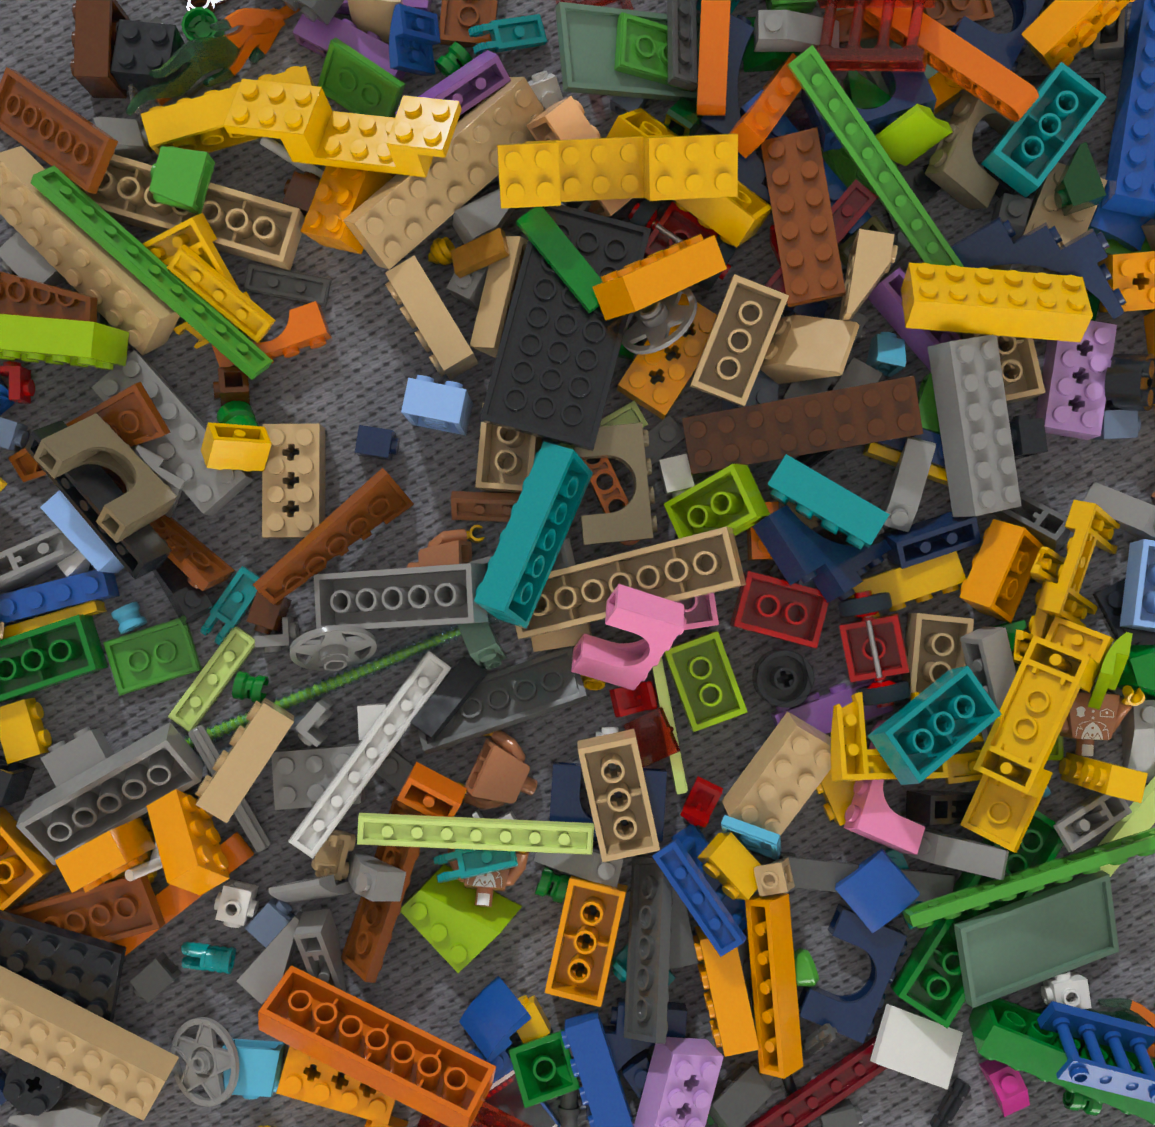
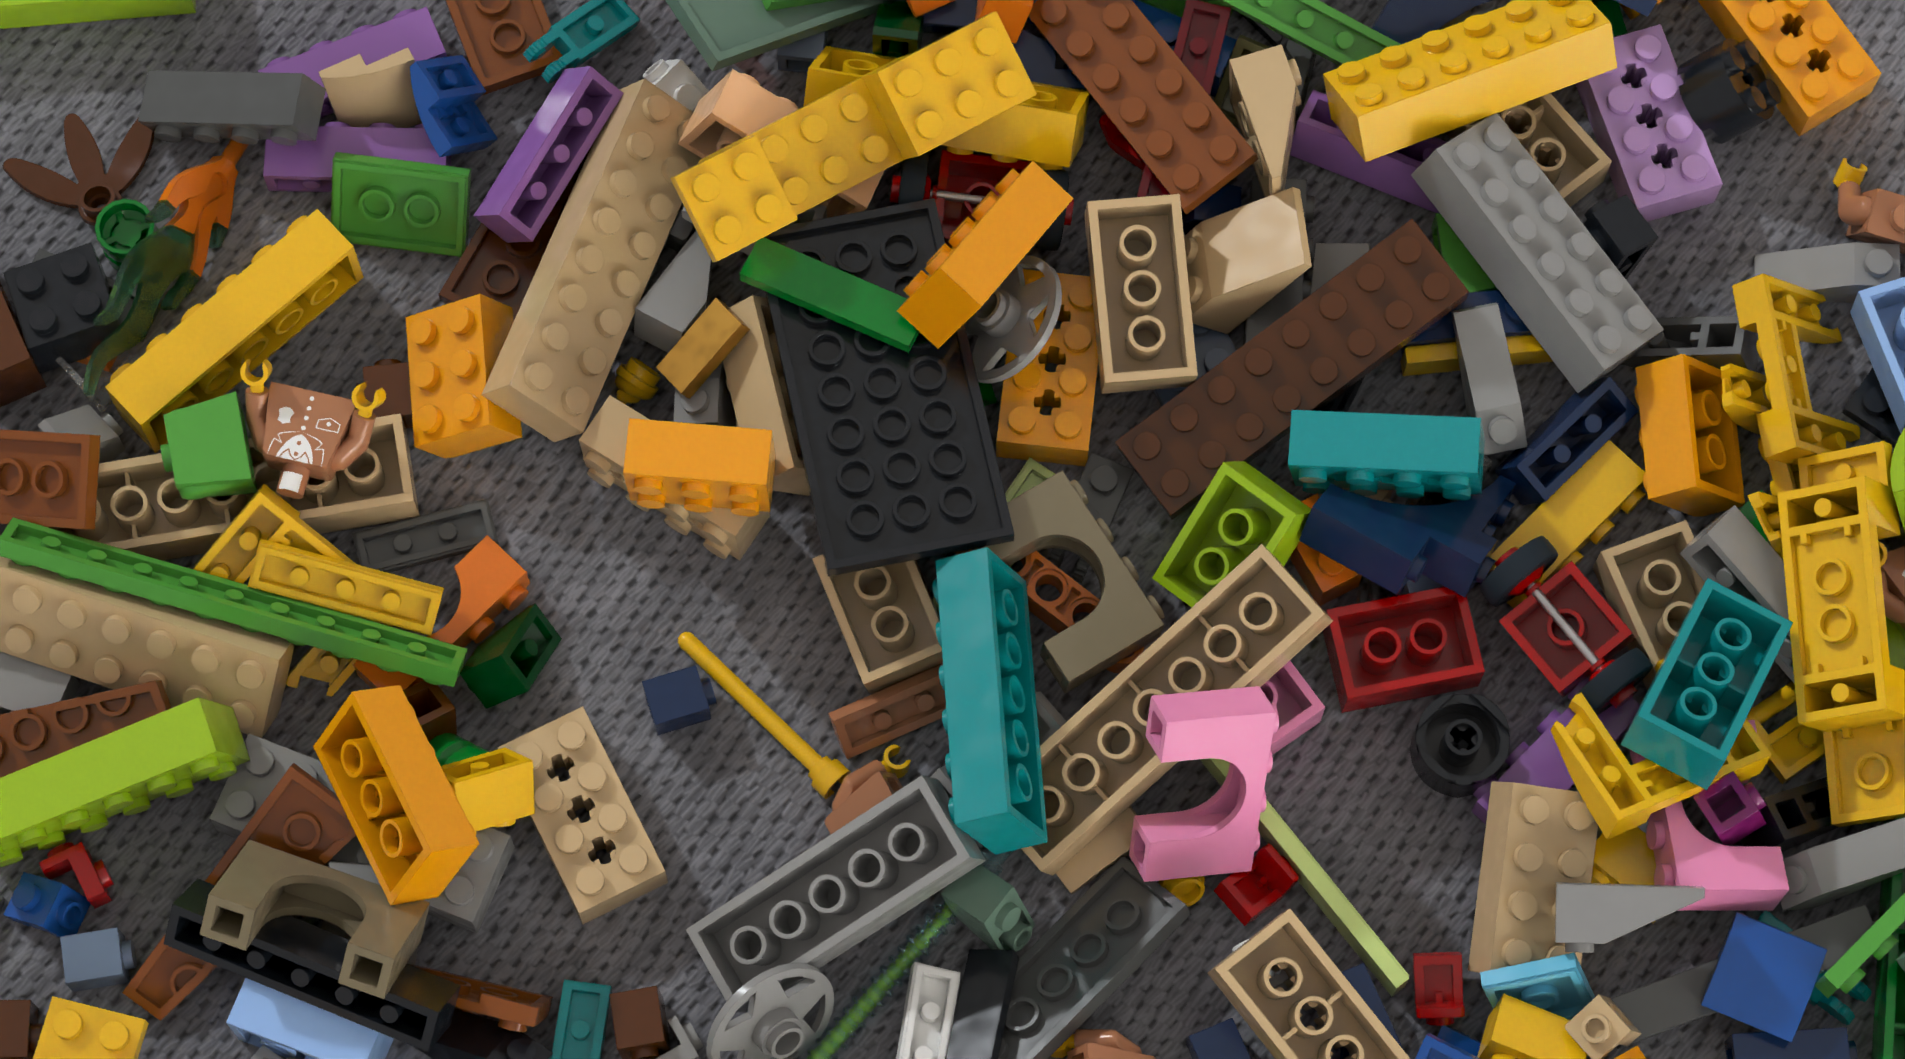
camera: 25 degrees left, 15 degrees down
(182, 428) = (395, 794): none -> light orange brick
(237, 192) = (306, 429): none -> nougat torso
(281, 151) = (339, 353): white bar -> none
(298, 375) = (511, 657): none -> dark green slope
(343, 139) = (434, 279): yellow bracket -> none
(367, 508) = (720, 789): dark orange wing -> none
(435, 519) = (823, 770): none -> yellow piece
(436, 323) = (699, 466): none -> light orange brick
(437, 405) = (750, 593): light blue brick -> none
(453, 60) = (519, 107): green wheel -> none
(653, 736) = (1324, 914): clear red piece -> none
(676, 474) = (1146, 531): white brick -> none
(705, 681) = (1347, 804): lime brick -> none
(812, 823) = (1604, 912): none -> light grey slope
(887, 353) = (1360, 215): medium azure slope -> none
(910, 795) = (1731, 808): none -> magenta brick
(1120, 425) = (1743, 159): sand blue brick -> none

